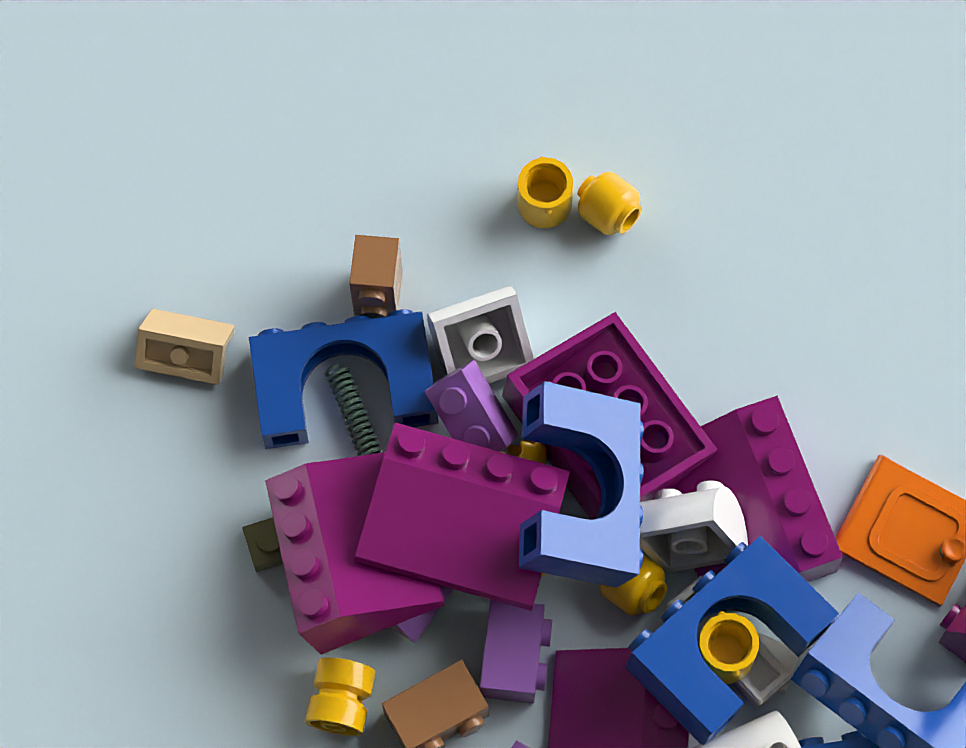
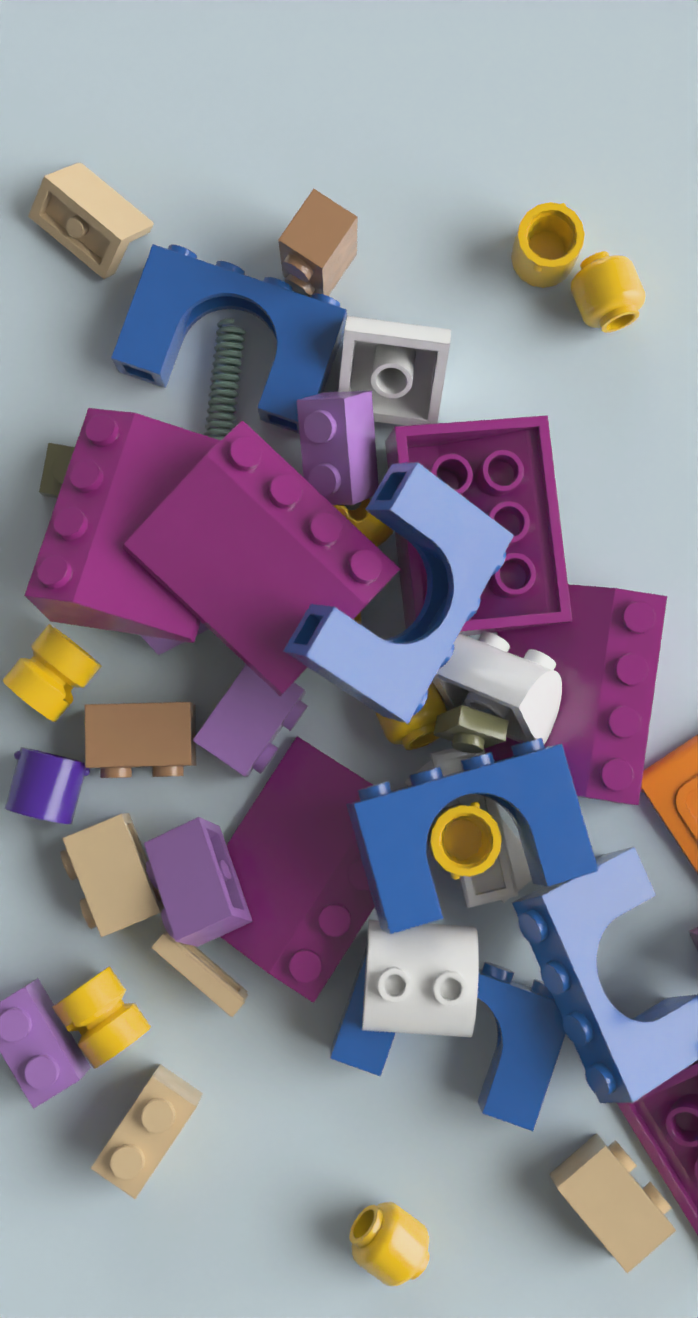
camera: 25 degrees right, 15 degrees up
(686, 564) = (470, 729): none -> olive plate

